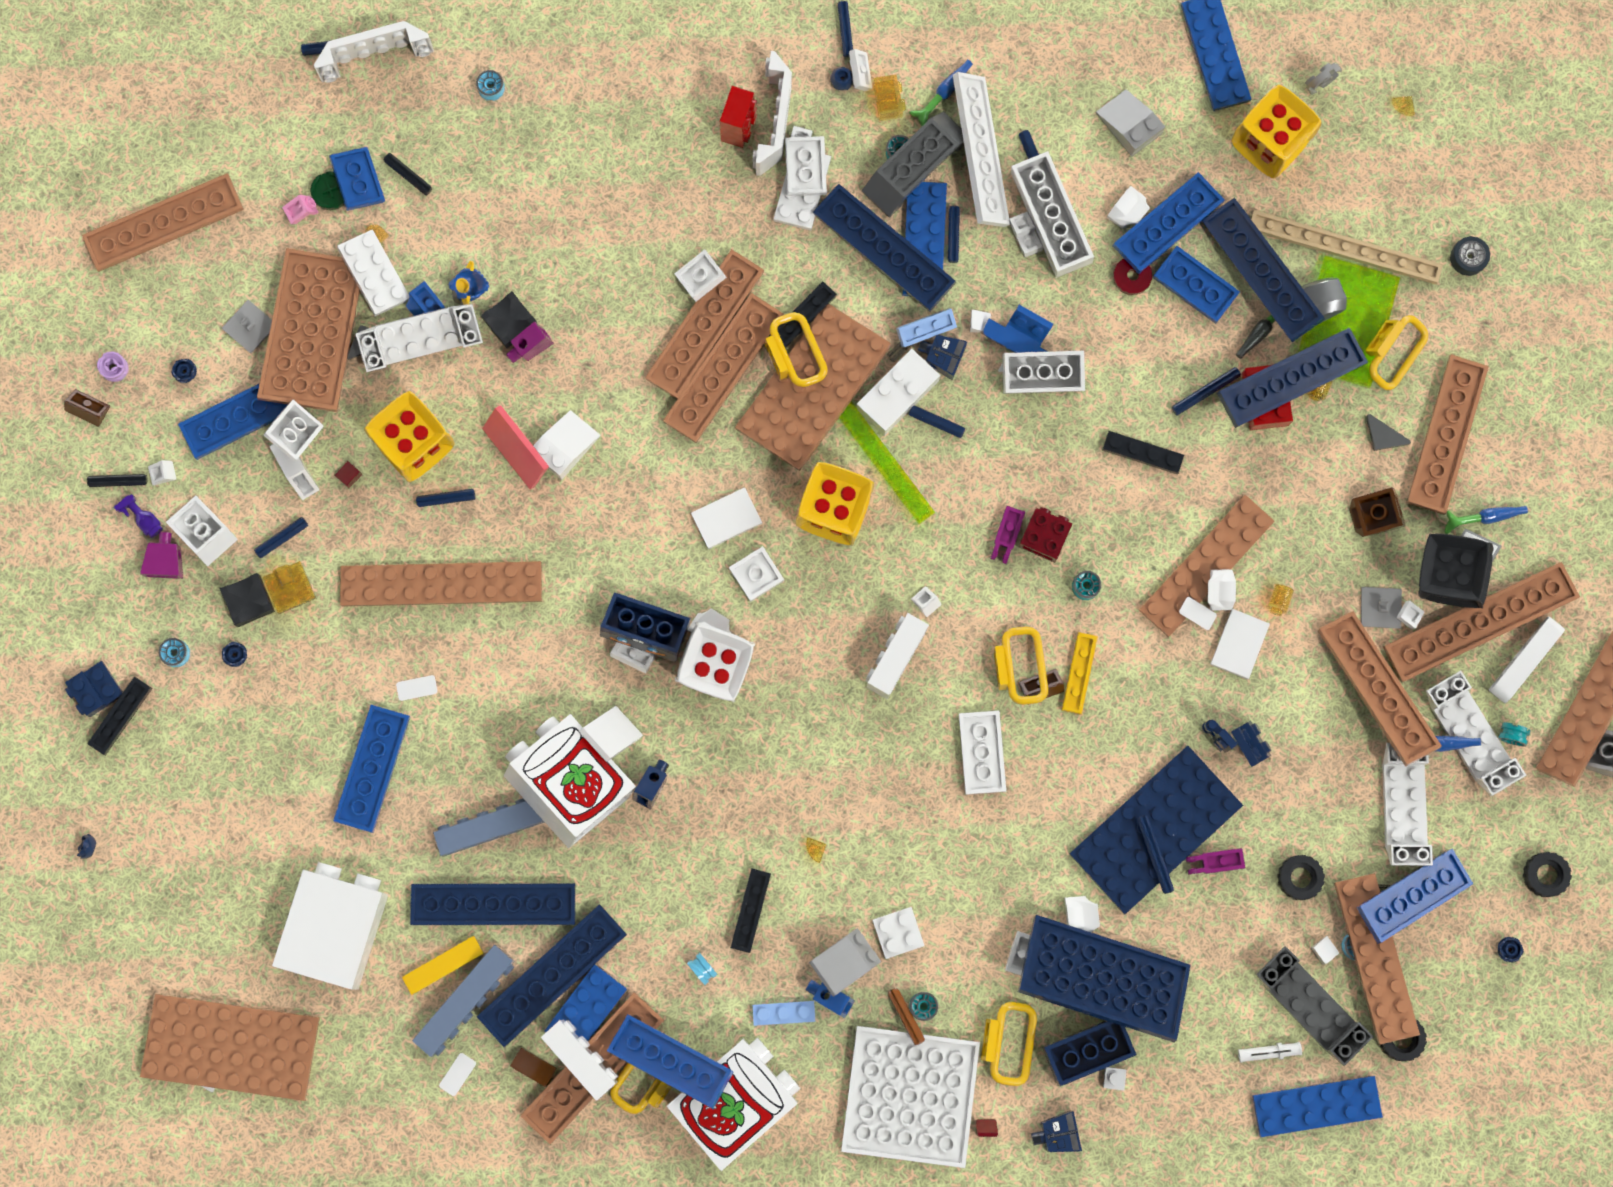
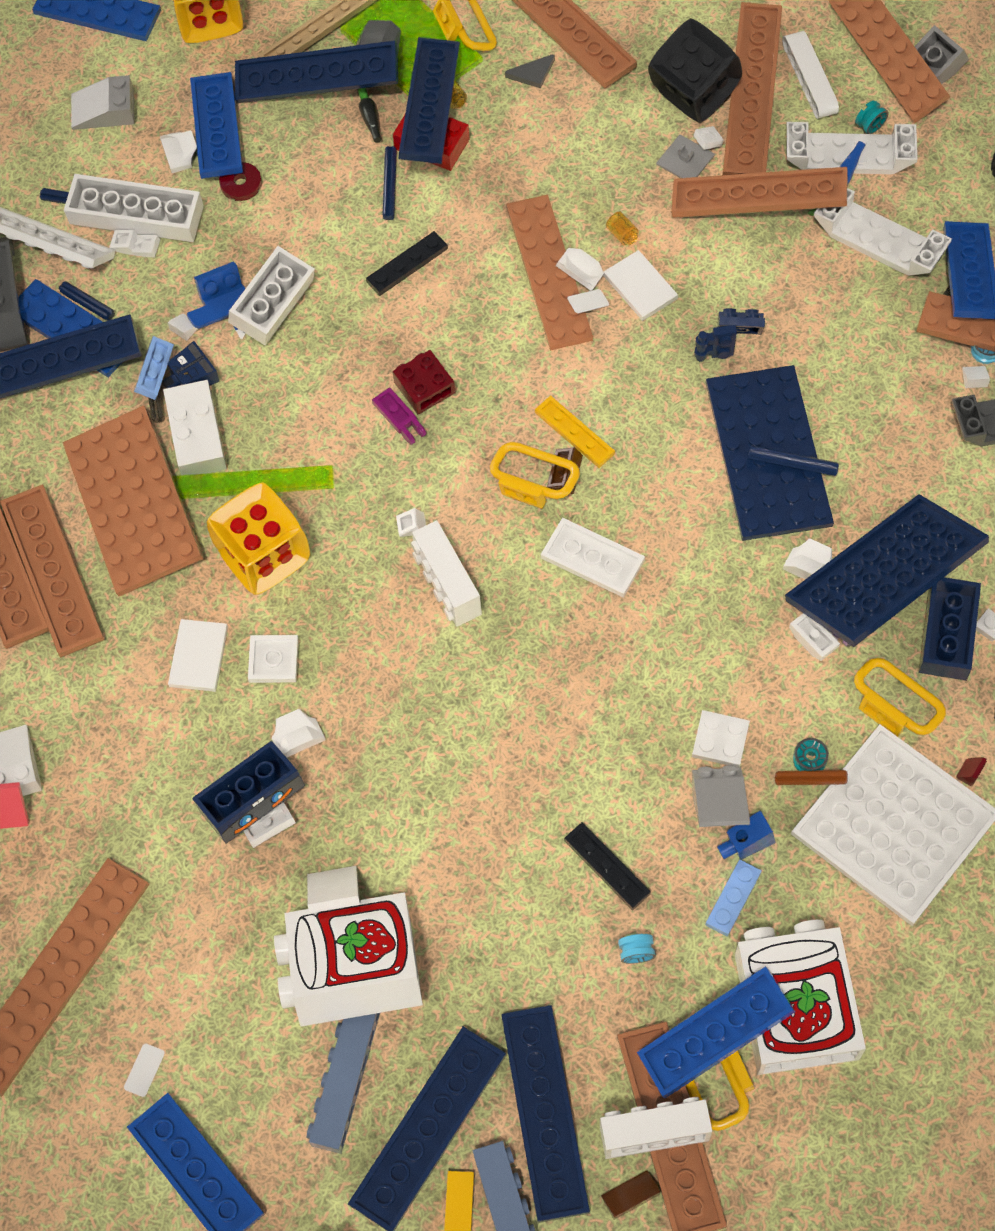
camera: 50 degrees left, 15 degrees down
(590, 1002) = (597, 1088): blue plate -> none
(647, 790) = (414, 884): dark blue torso -> none
(715, 662) = (332, 738): white piece -> none
(780, 357) = (84, 509): yellow bar -> none
(809, 308) = (58, 471): black plate -> none
(815, 849) = (585, 767): clear yellow tile -> none
(937, 421) = (248, 414): dark blue axle -> none
(1093, 581) = (496, 369): teal wheel -> none
(1196, 284) = (288, 136): blue plate -> none
(1218, 861) = (834, 415): magenta hinge -> none
(1315, 871) = (897, 340): black tyre -> none
(1376, 512) = (598, 111): reddish brown slope -> none
(1485, 516) = (661, 34): blue piece -> none

